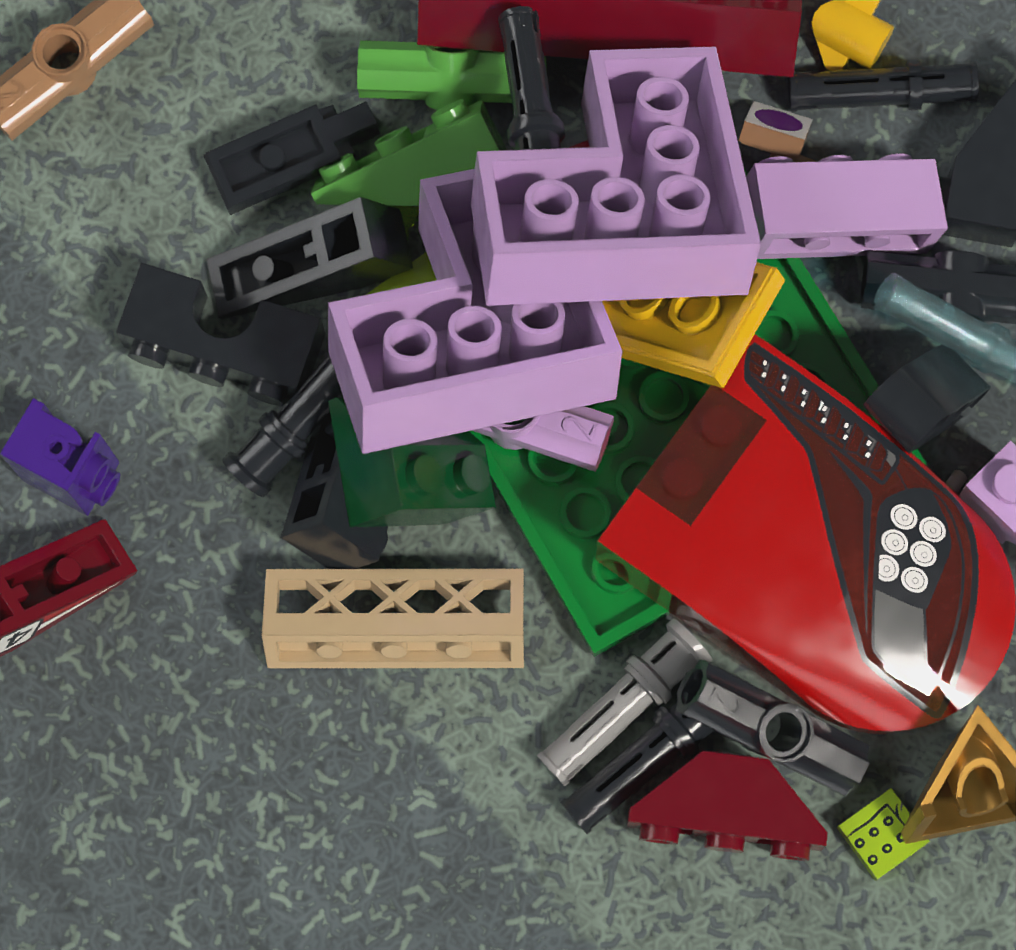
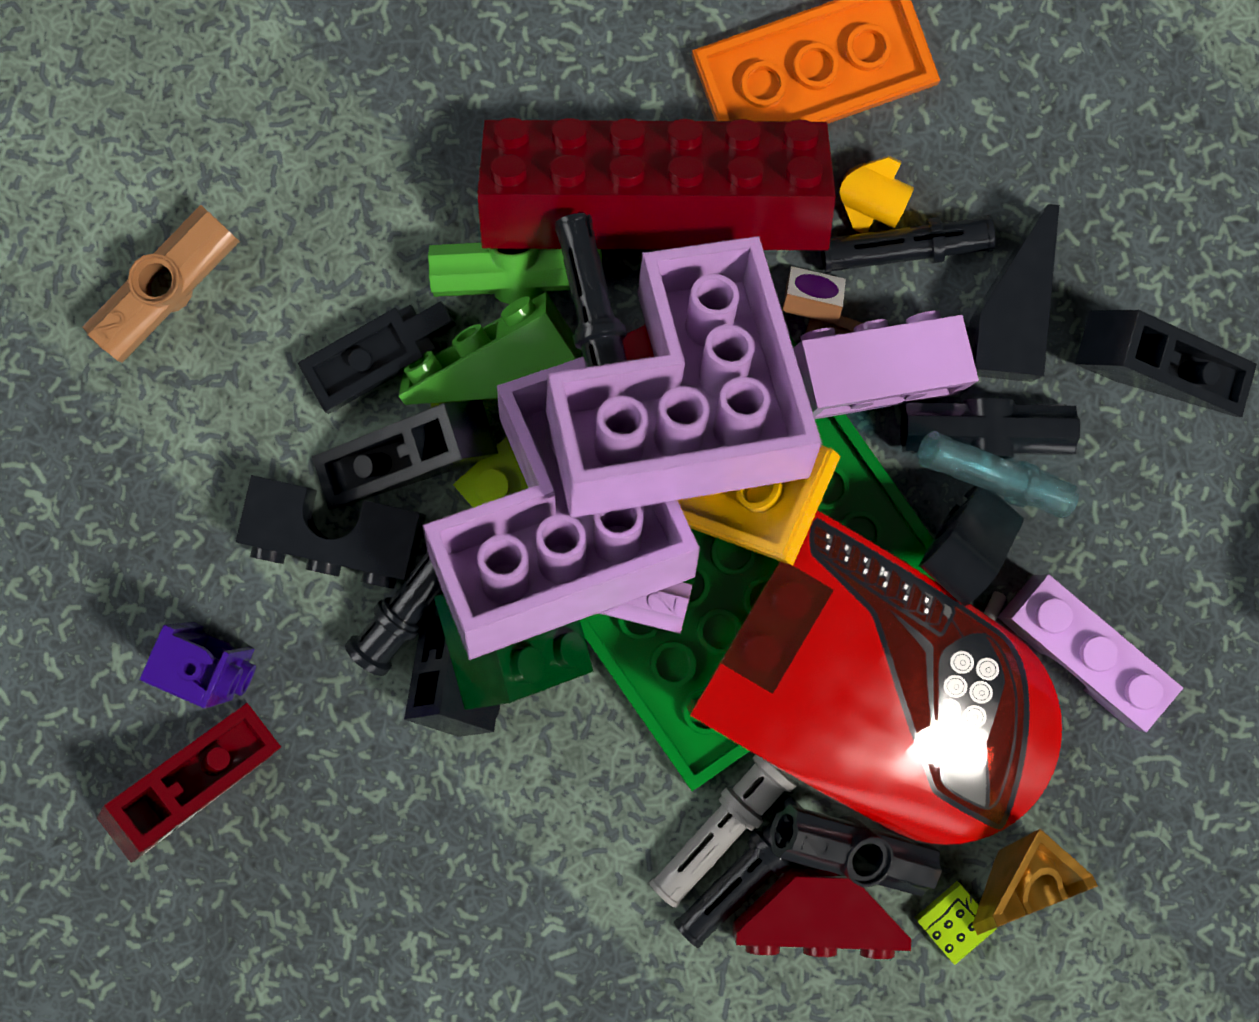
camera: 10 degrees left, 10 degrees up
(391, 638) = (511, 794): tan fence -> none

